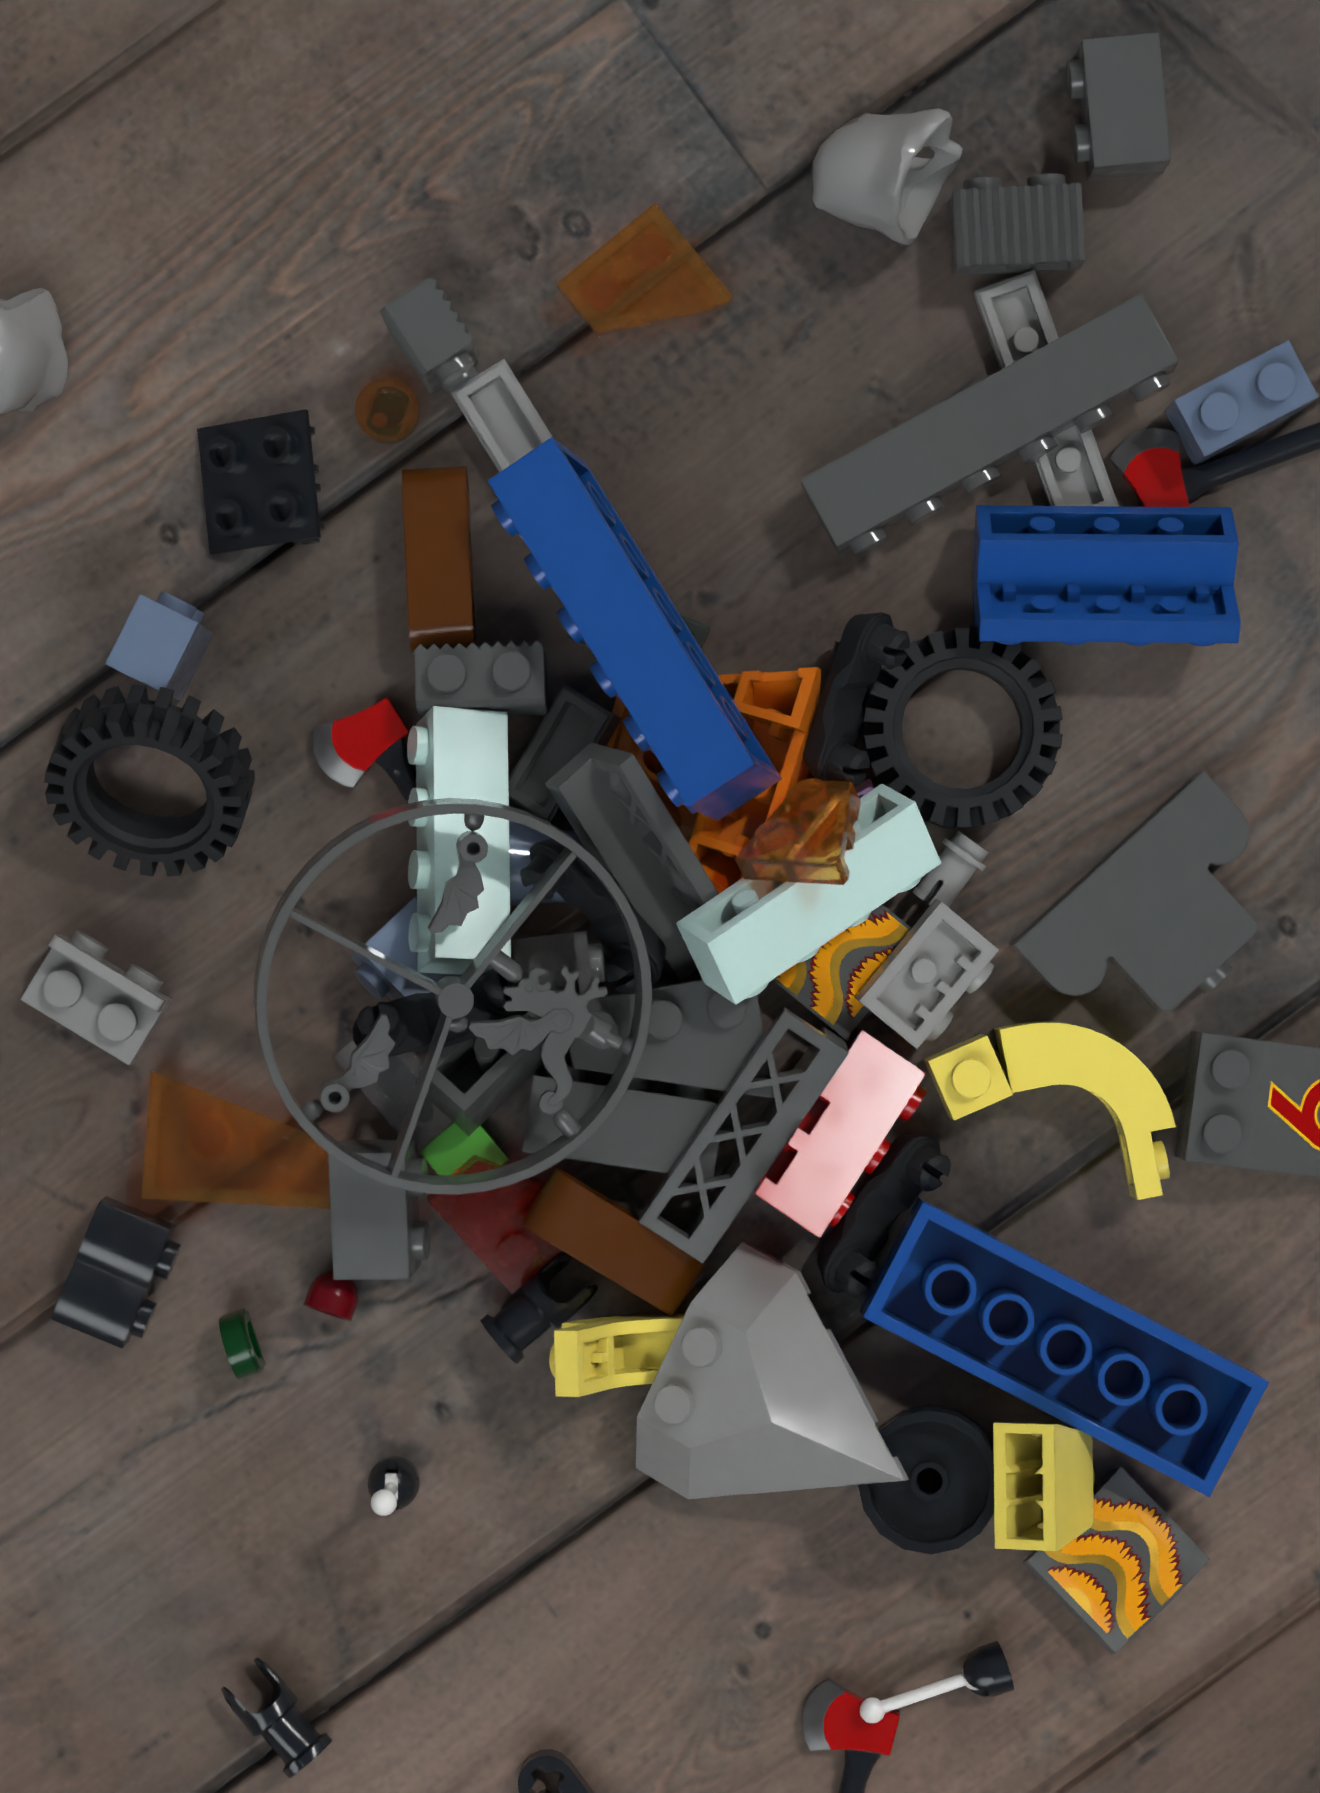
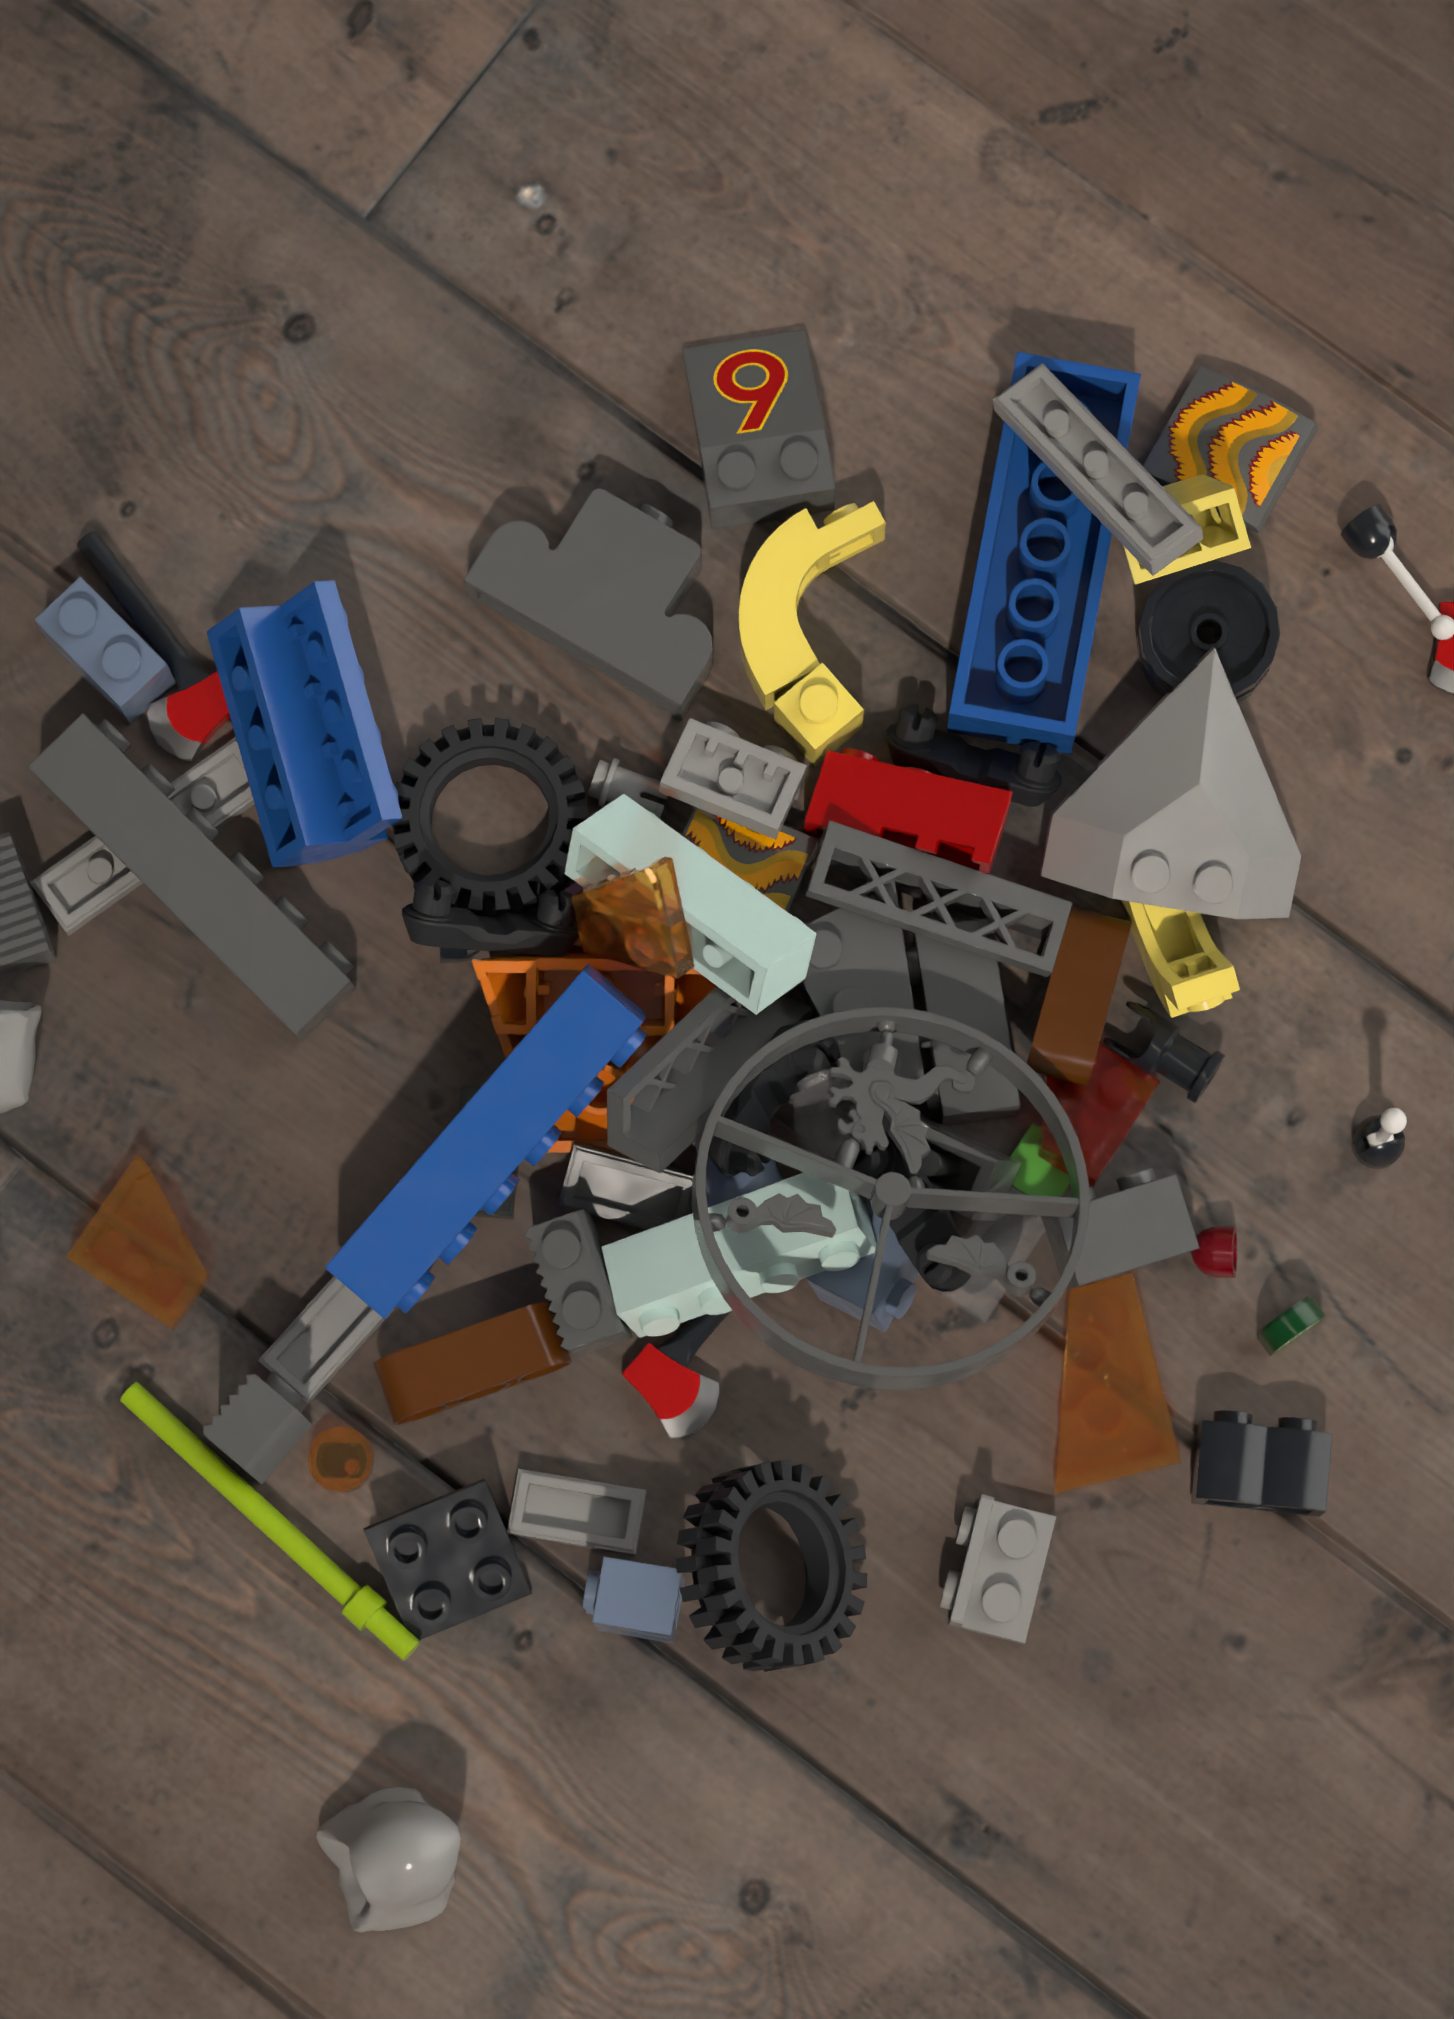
camera: 100 degrees left, 10 degrees down
(243, 391) = (361, 1605): none -> lime bar
(271, 618) = (577, 1512): none -> light grey tile
(1117, 1423) = (1098, 469): none -> light grey tile

